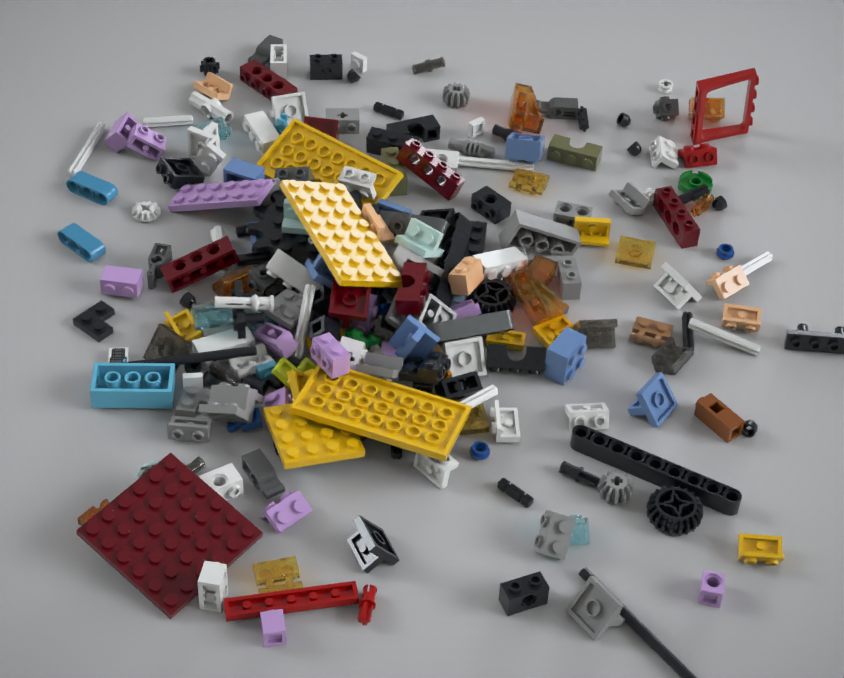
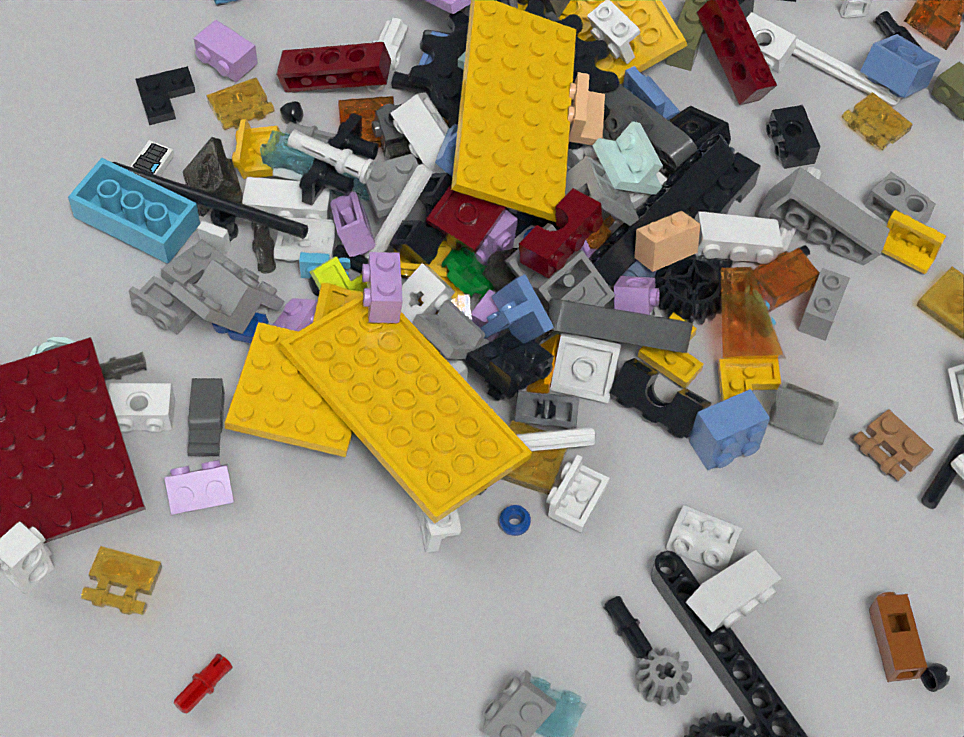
camera: 30 degrees right, 15 degrees up
(146, 308) = (240, 102): none -> clear yellow plate
(156, 260) = (295, 34): dark grey piece -> none
(210, 378) = (241, 240): black hinge -> none
(258, 384) = (290, 277): black bush -> none
(273, 628) = (62, 655): lavender brick -> none
(291, 600) = (113, 626): red plate -> none
(371, 545) = (269, 597): black bracket -> none
(472, 148) = (828, 35): light grey hinge -> none
(515, 492) = (520, 610): black axle -> none
(625, 428) = (734, 591): none -> white brick
(654, 400) = (815, 564): medium blue bracket -> none
(671, 358) = (891, 502): clear smoke bracket -> none

